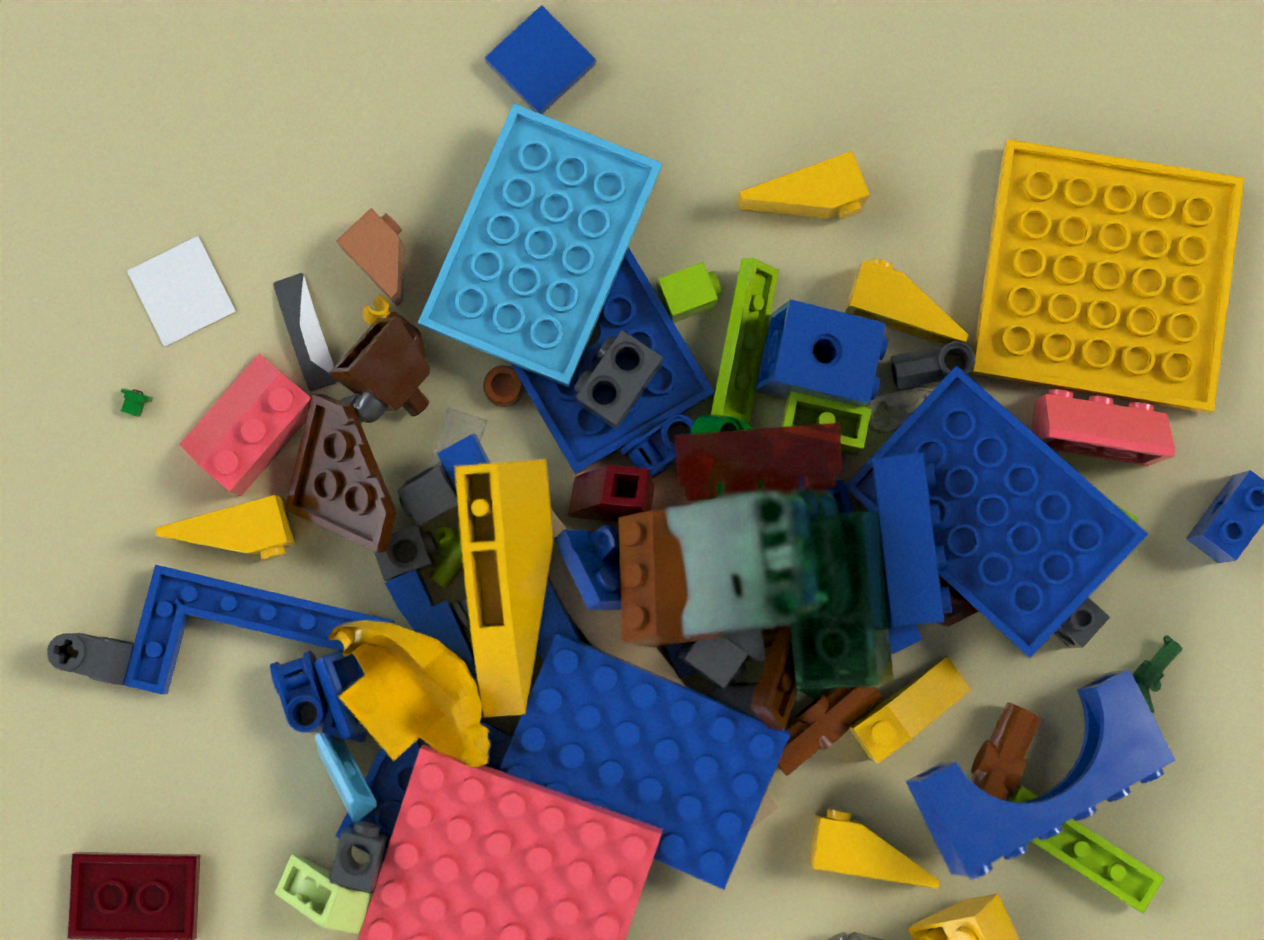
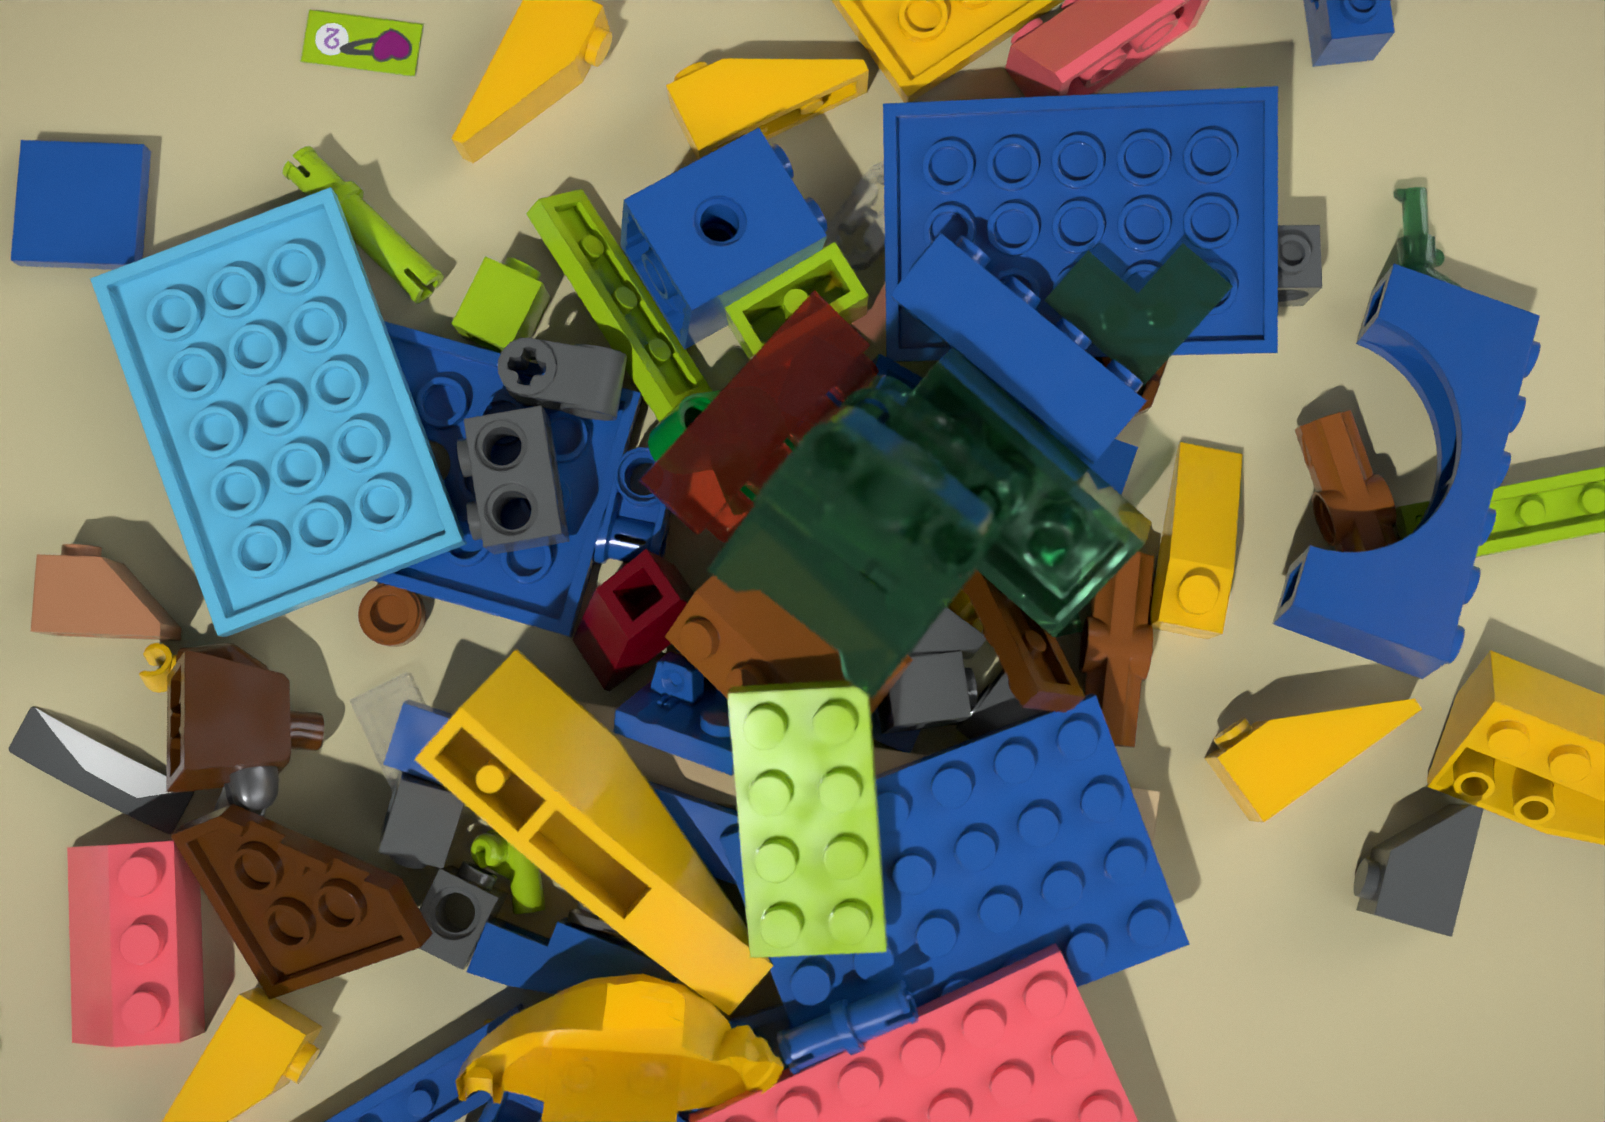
camera: 40 degrees left, 0 degrees up
(532, 774) = (847, 1027): none -> blue pin
(604, 663) = (808, 818): none -> lime plate
(662, 195) = (366, 225): none -> lime pin
(689, 360) = (576, 378): none -> dark grey piece
(741, 103) = (361, 43): none -> lime sticker
(928, 366) = (852, 137): dark grey piece -> none
(976, 585) = (1142, 326): none -> clear green tile

